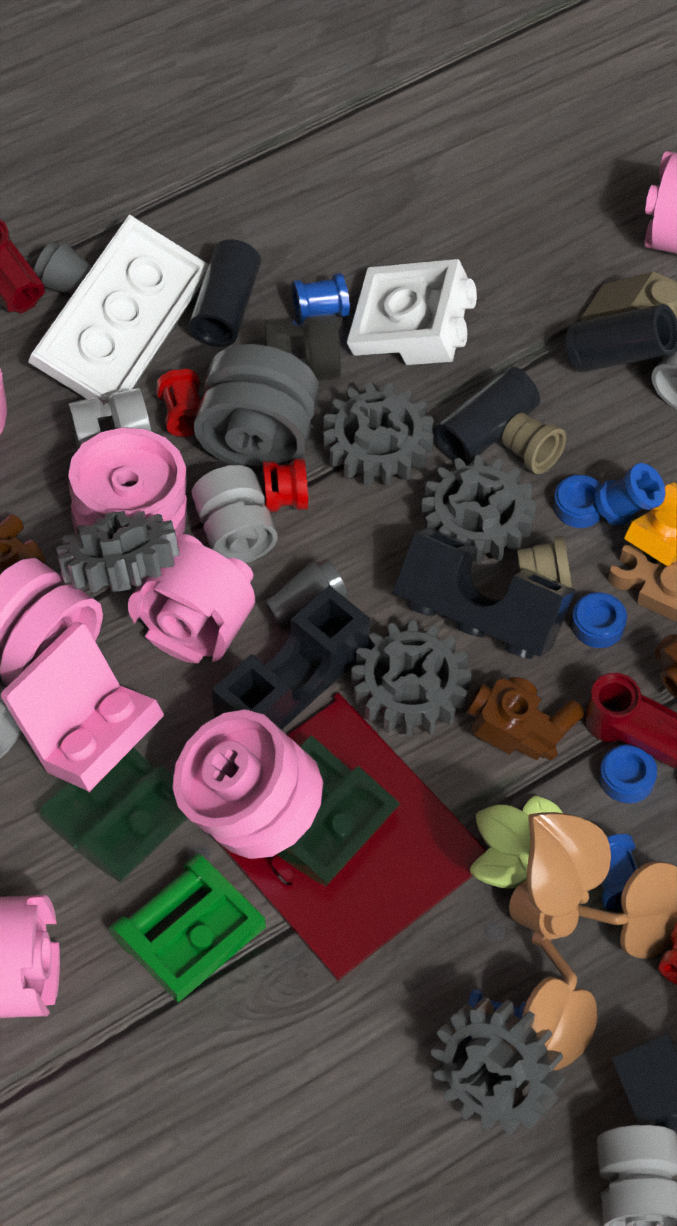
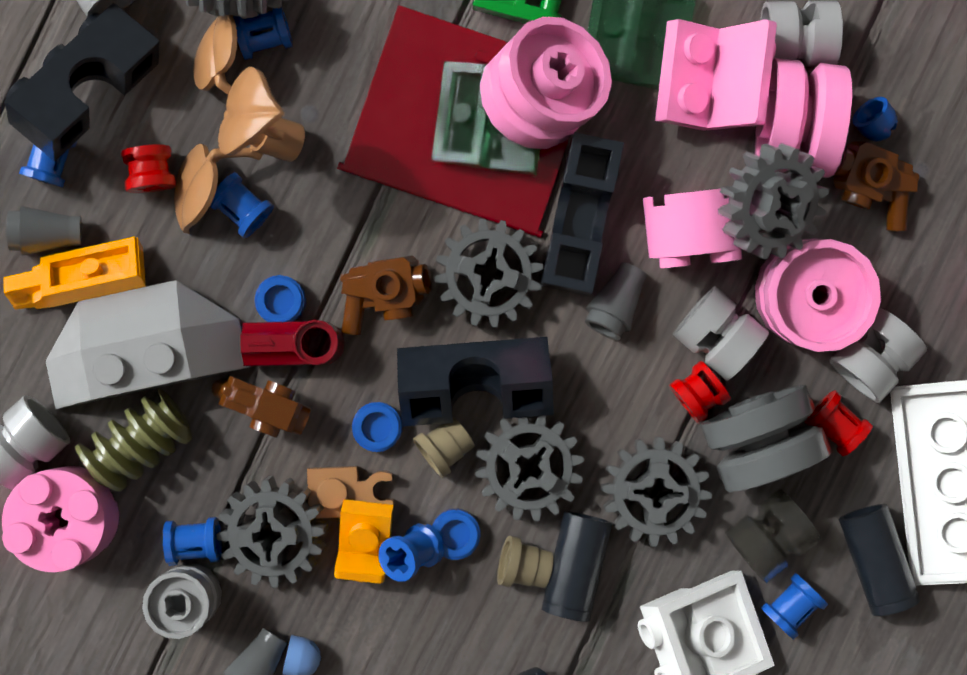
camera: 150 degrees right, 30 degrees up
(508, 836) = (331, 189): yellowish green plate -> none

